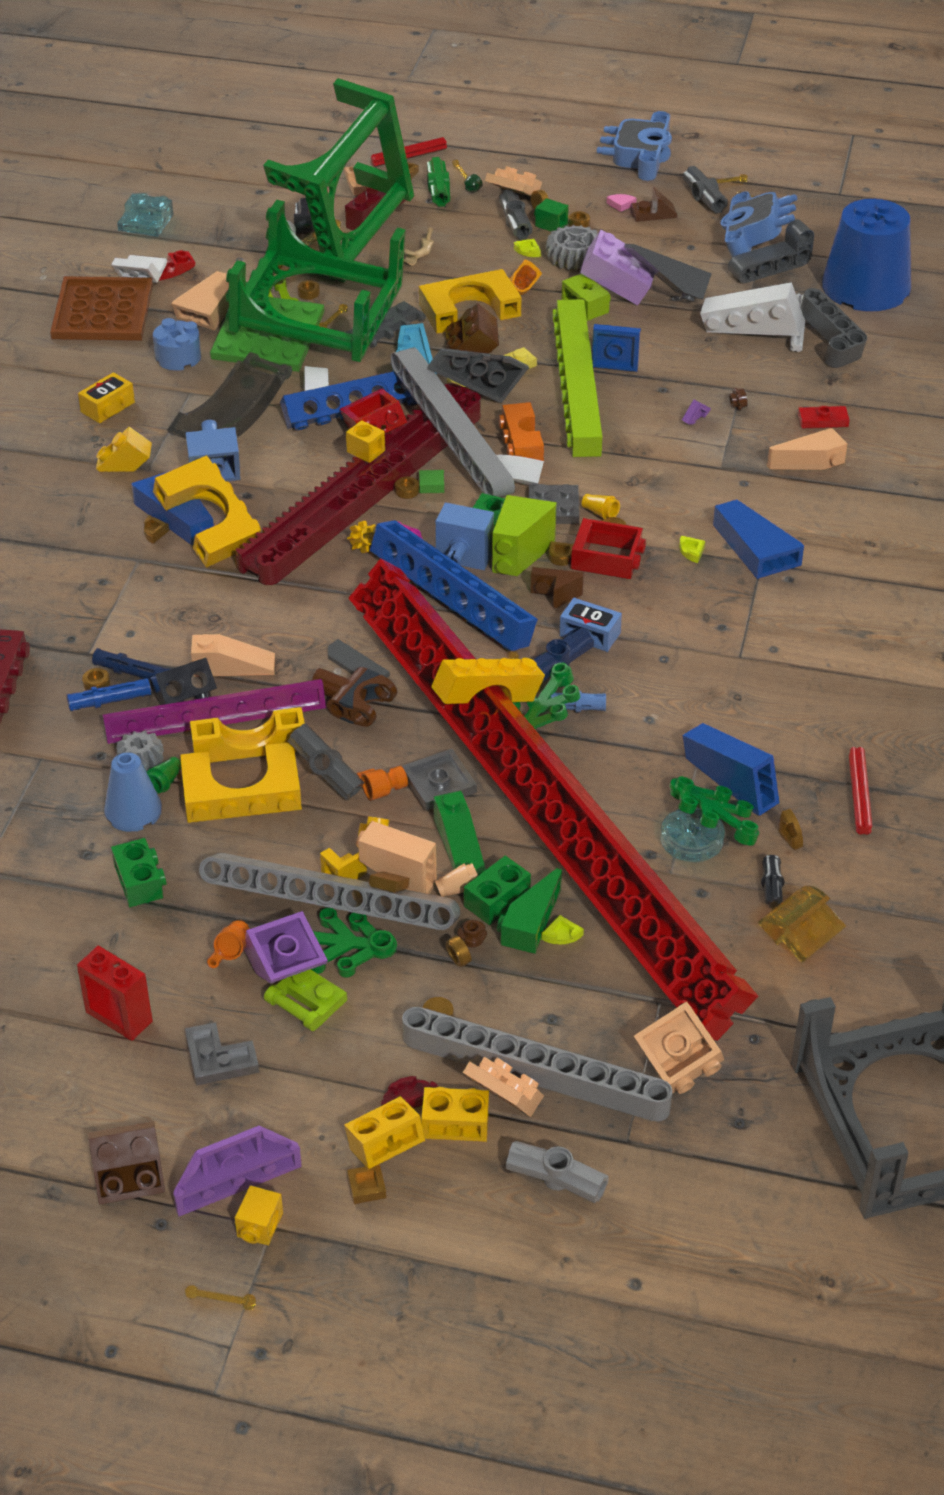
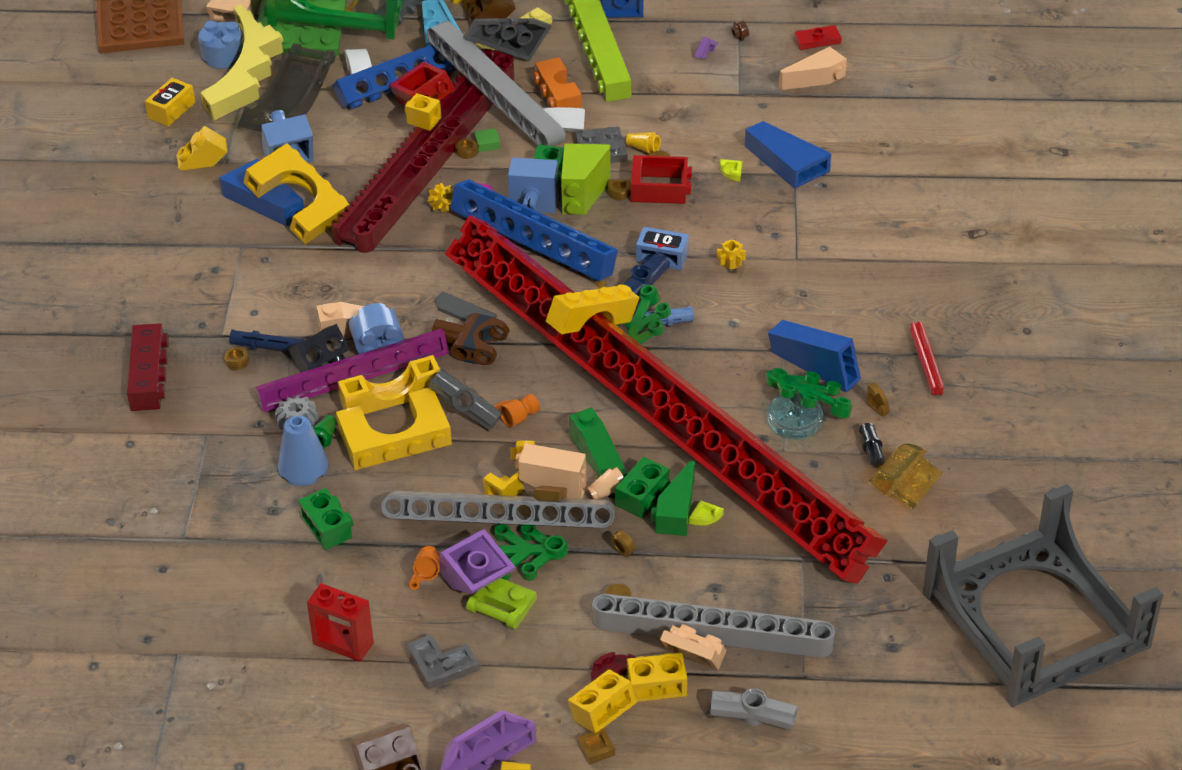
camera: 10 degrees left, 0 degrees up
(98, 696) = (243, 372): blue pin -> none
(154, 529) = (249, 216): pearl gold tile -> none
(202, 370) = (241, 83): none -> light yellow arch
(249, 667) = (375, 327): none -> medium blue brick
(438, 776) = (566, 398): flat silver plate -> none
(472, 933) = (630, 525): reddish brown plate -> none
(559, 583) = (629, 216): reddish brown slope -> none
(665, 642) = (731, 254): none -> yellow gear
(680, 1048) = (832, 593): light nougat plate -> none

